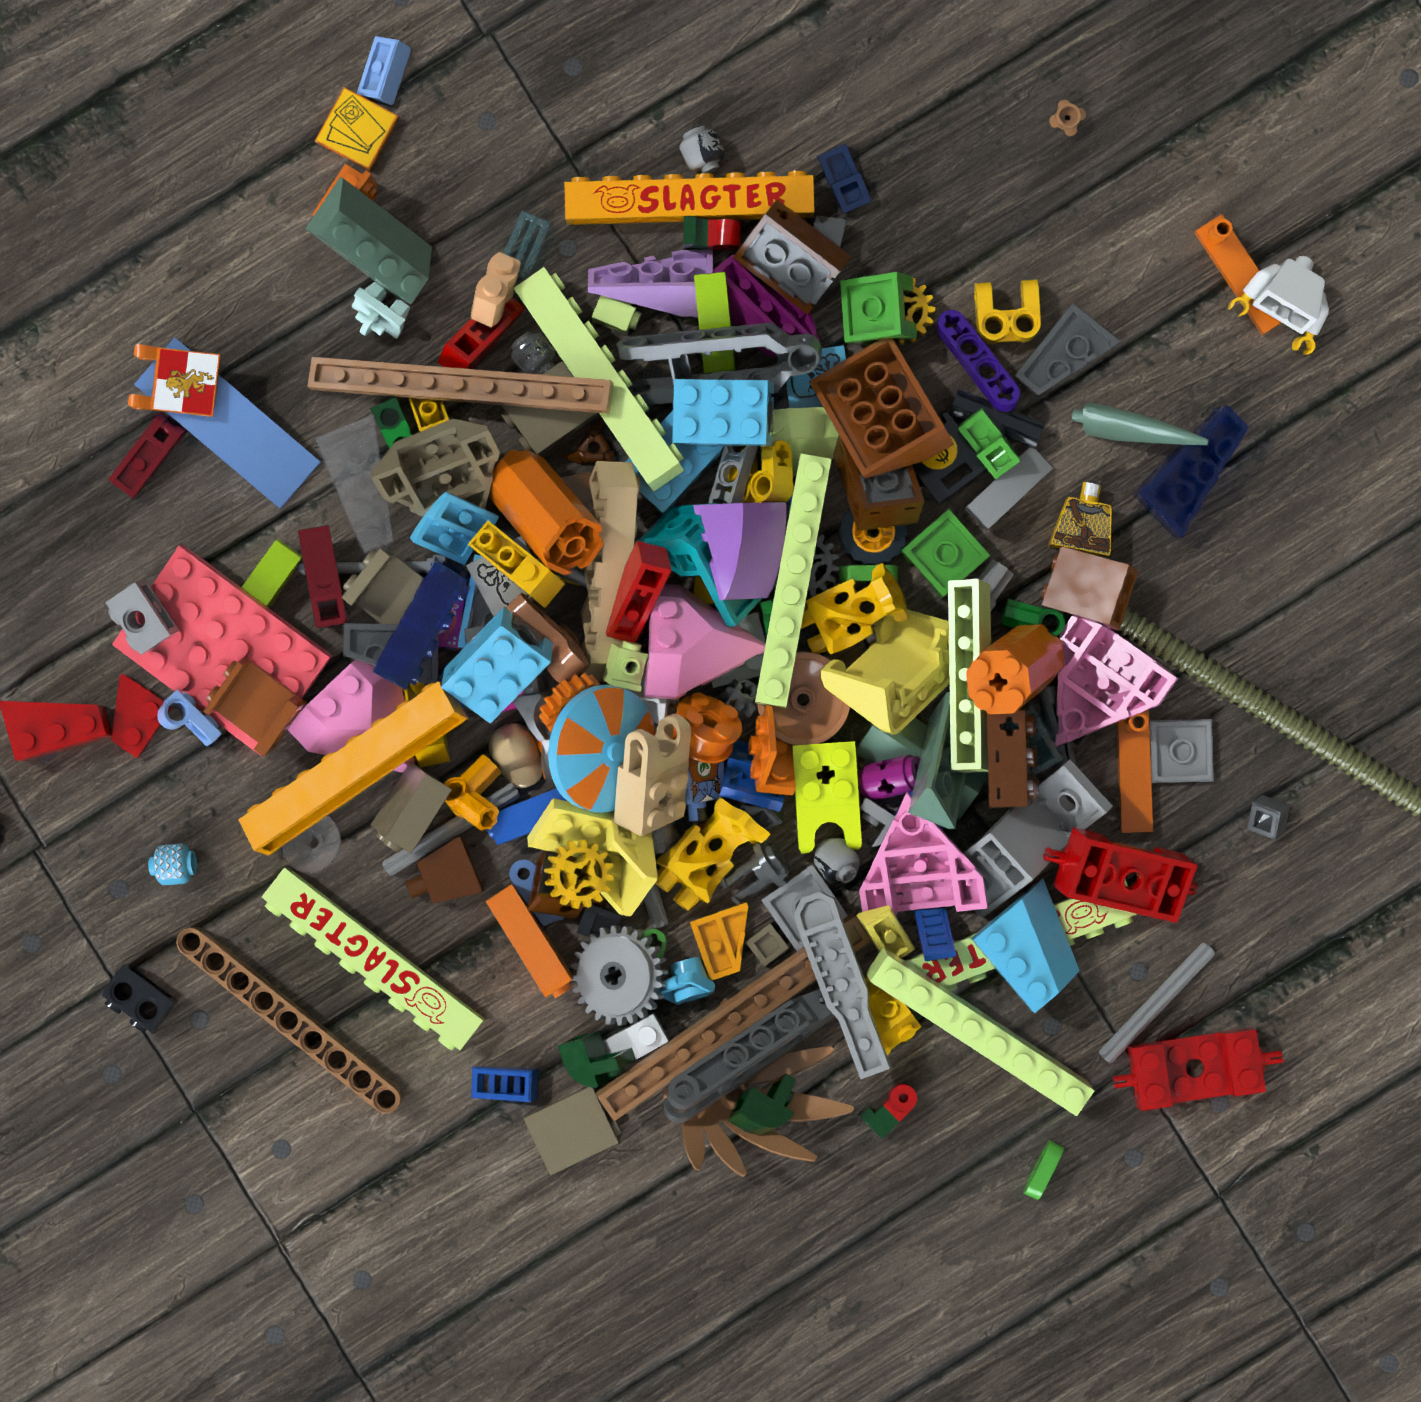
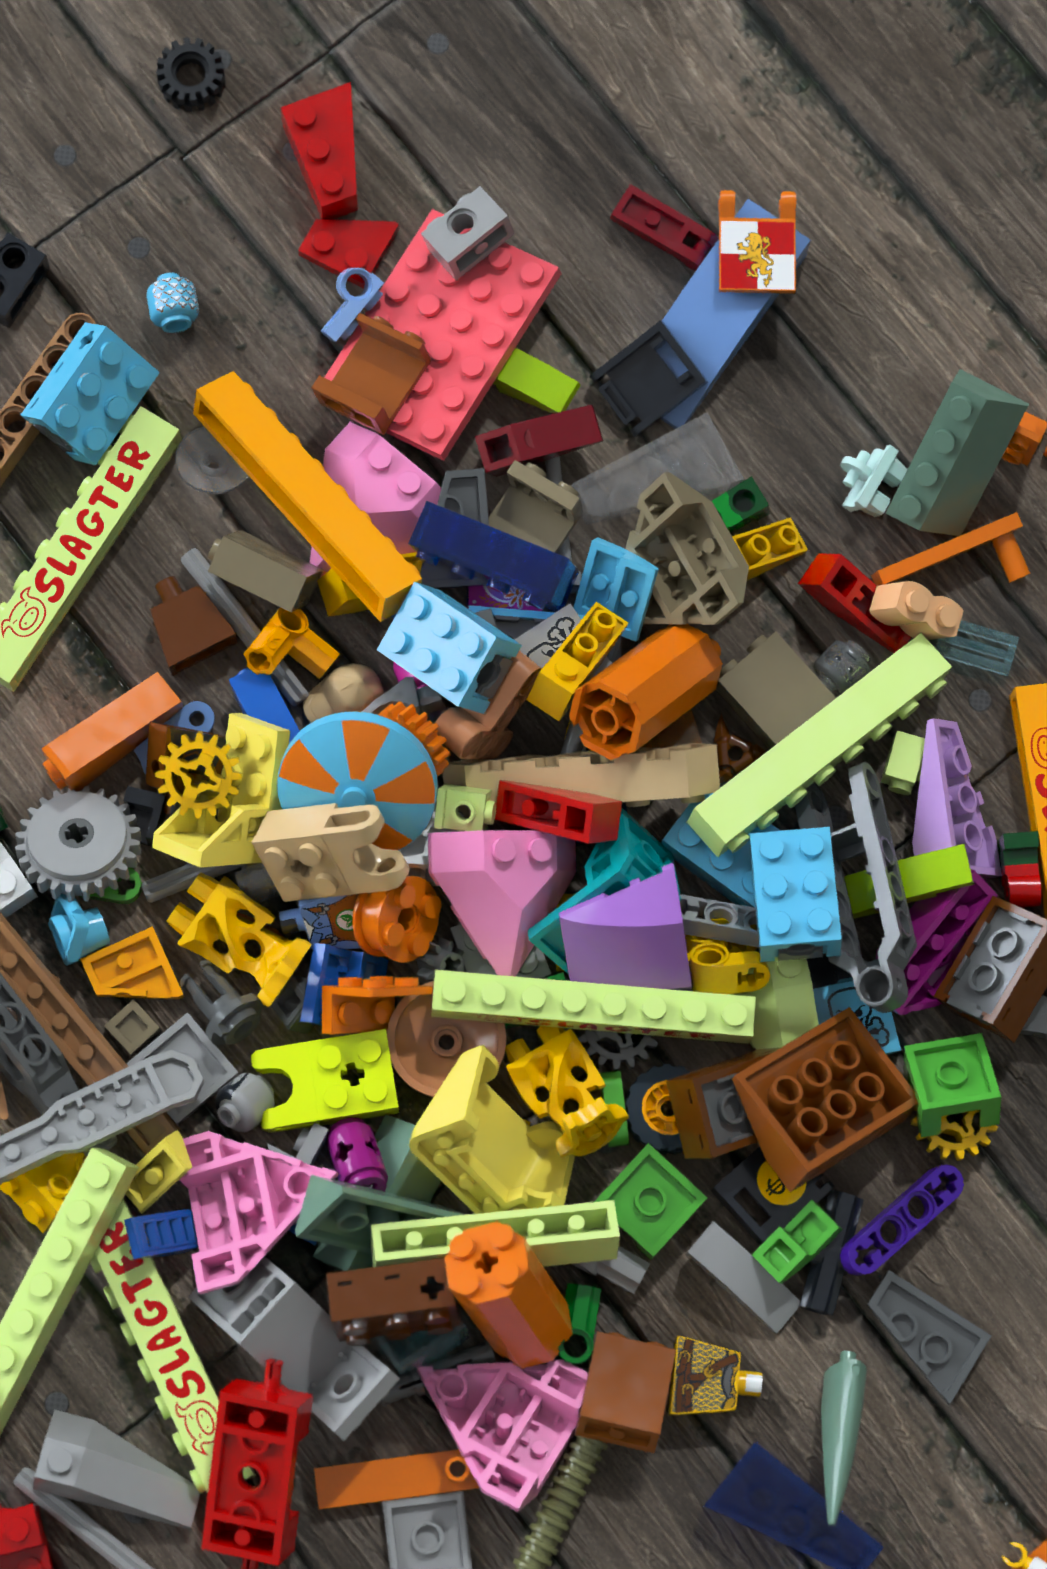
camera: 75 degrees right, 10 degrees down
(247, 937) = (90, 393): none -> medium azure piece
(280, 486) = (644, 383): none -> black container
(433, 216) = (997, 532): none -> orange piece
(461, 385) = (792, 581): medium nougat plate -> none
(1007, 318) = (961, 1254): yellow piece -> none
(1029, 947) = (152, 1356): medium azure wedge -> none
(1106, 994) = (104, 1470): none -> light grey wedge

